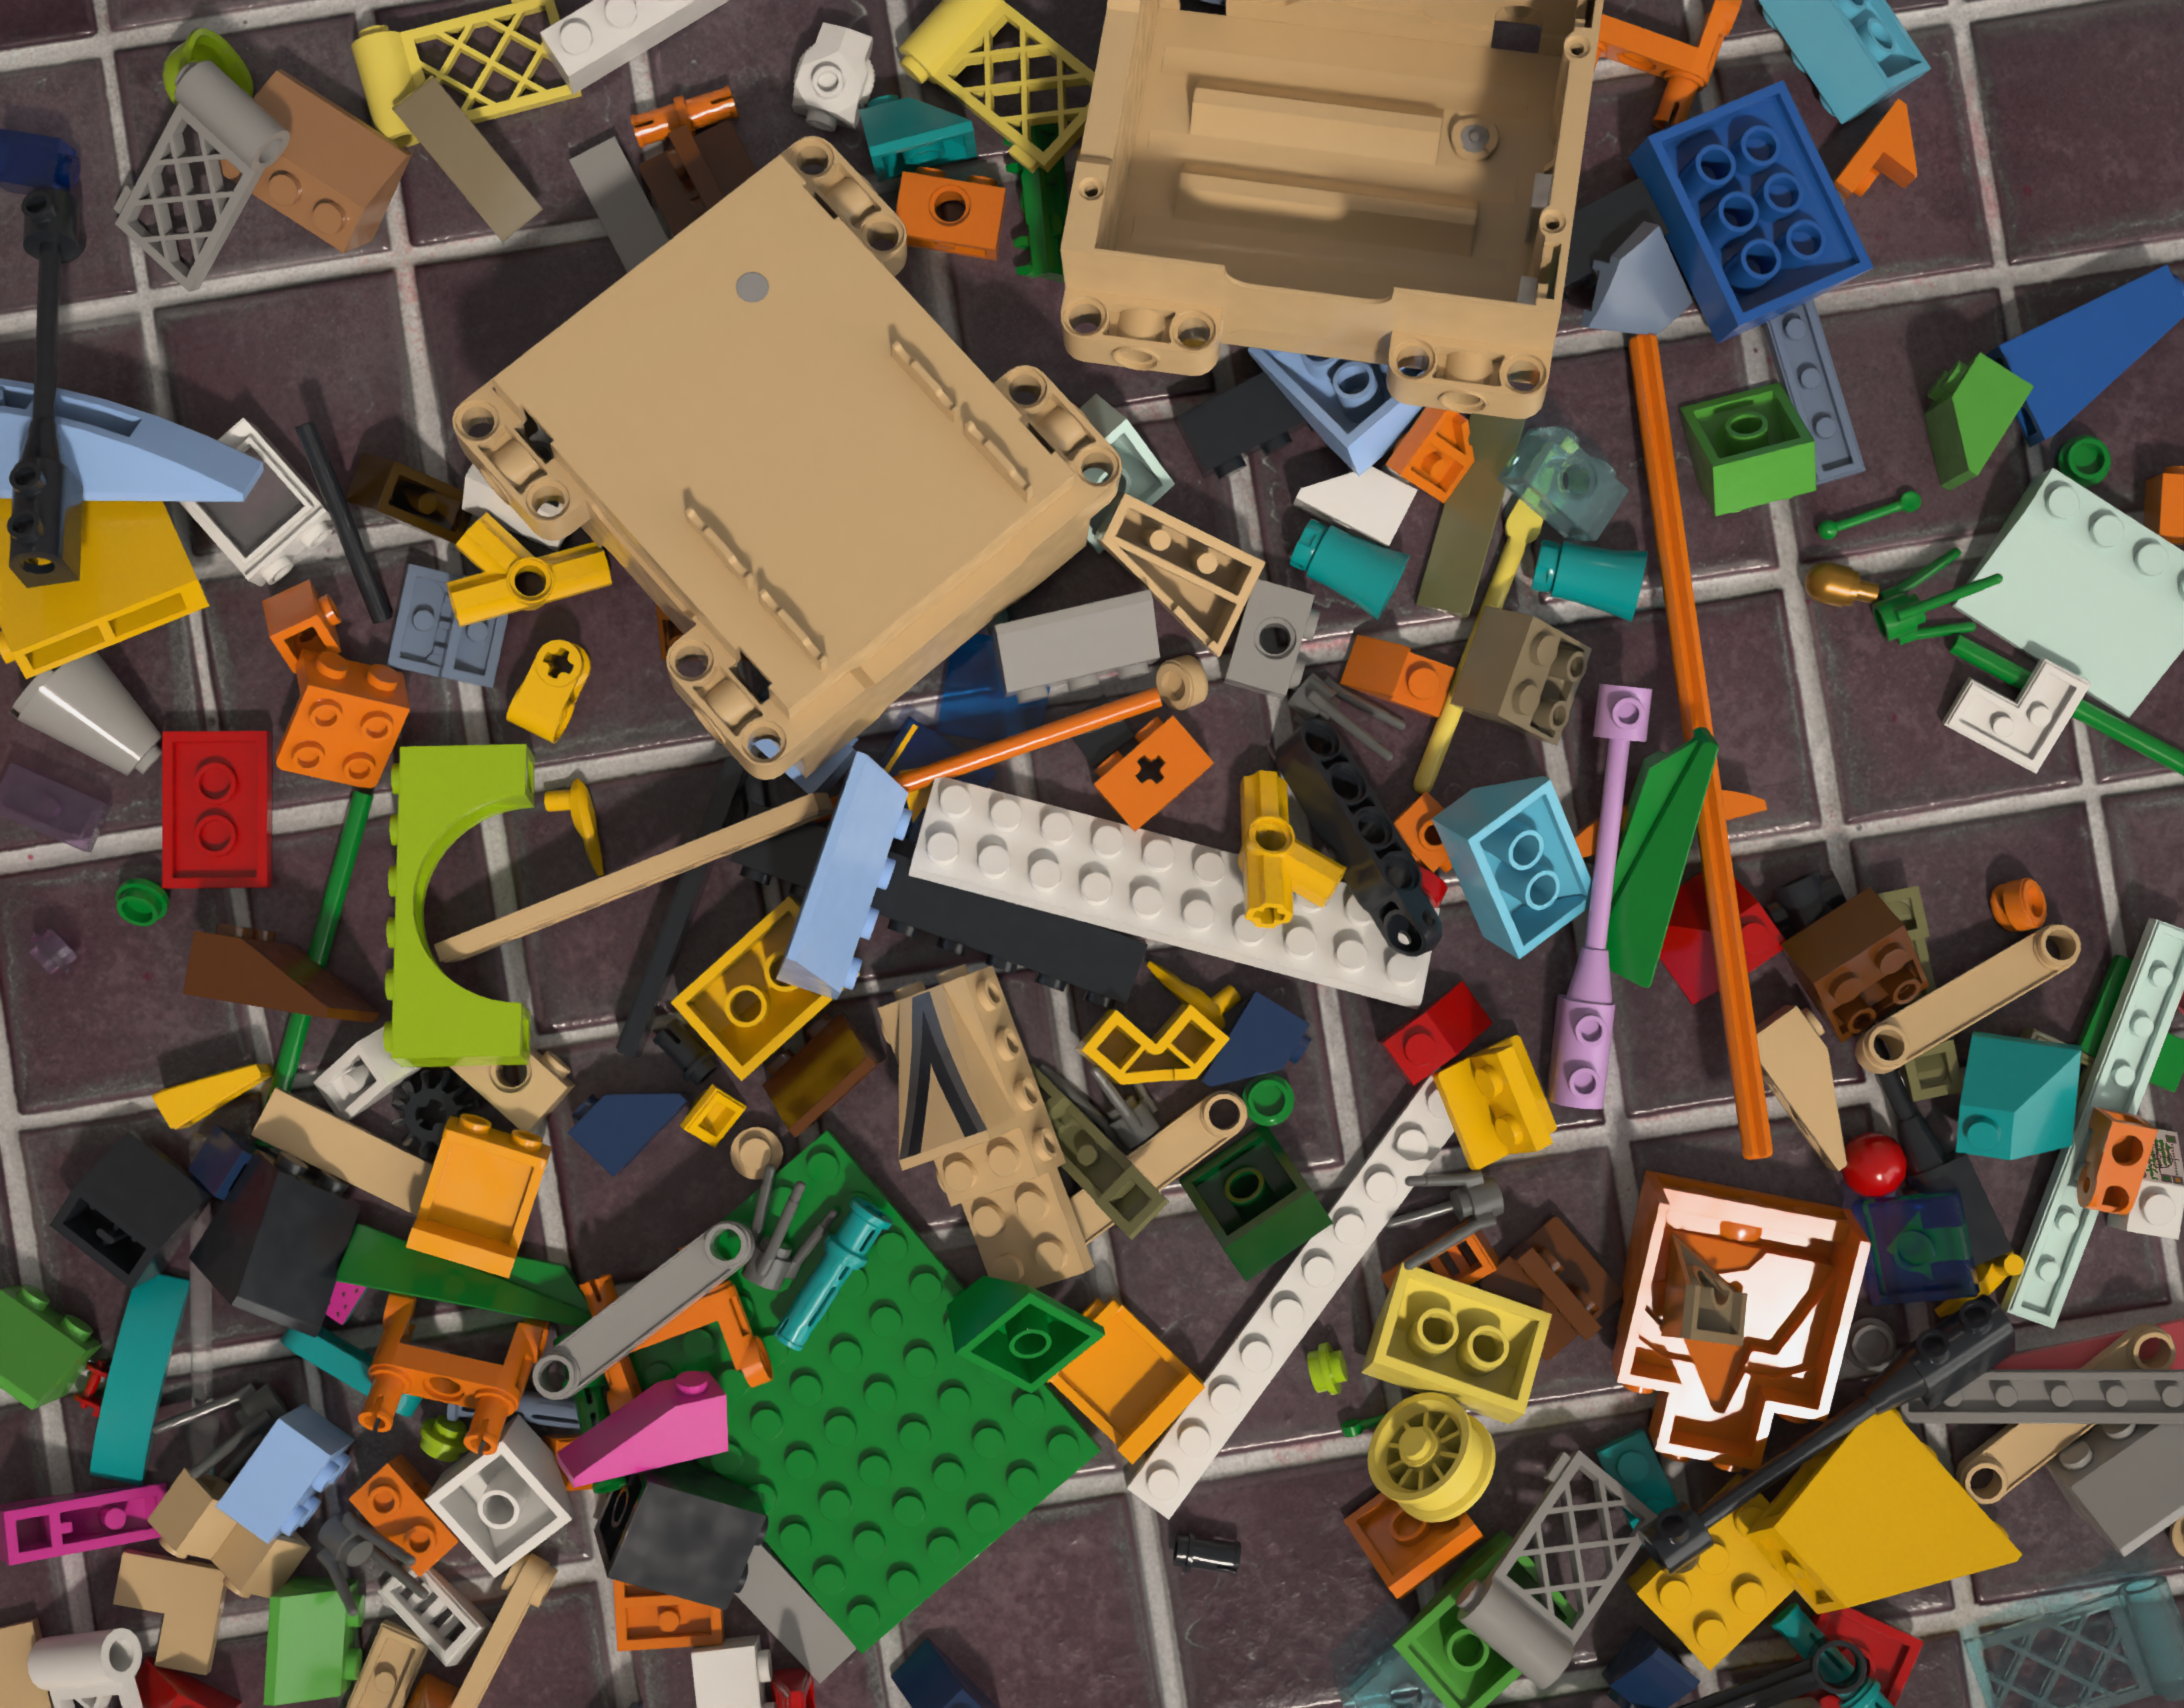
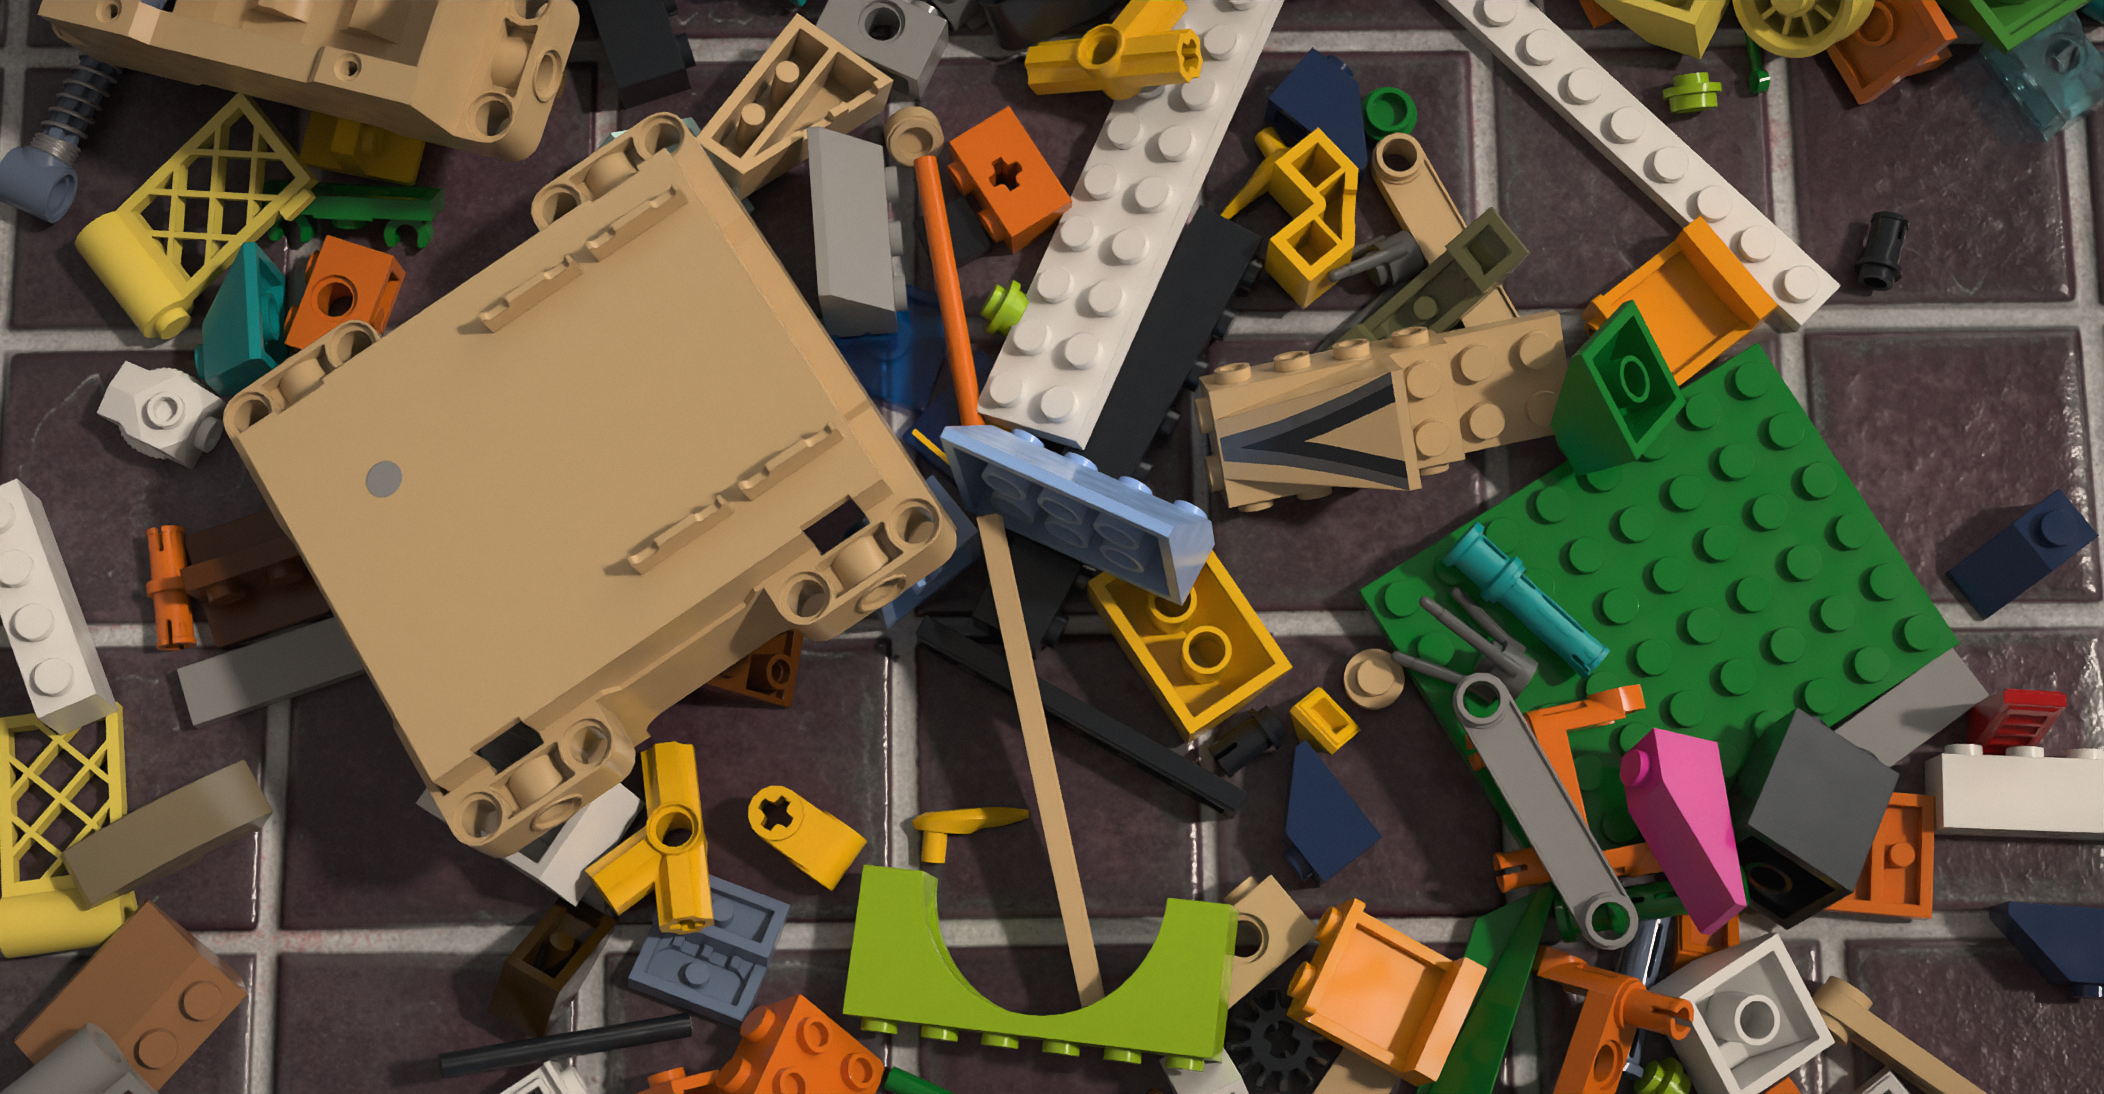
camera: 75 degrees left, 10 degrees down
(821, 1073) = (1297, 575): reddish brown slope -> none
(1036, 786) = (1004, 308): none -> lime plate
(1255, 1202) = (1499, 139): dark green slope -> none

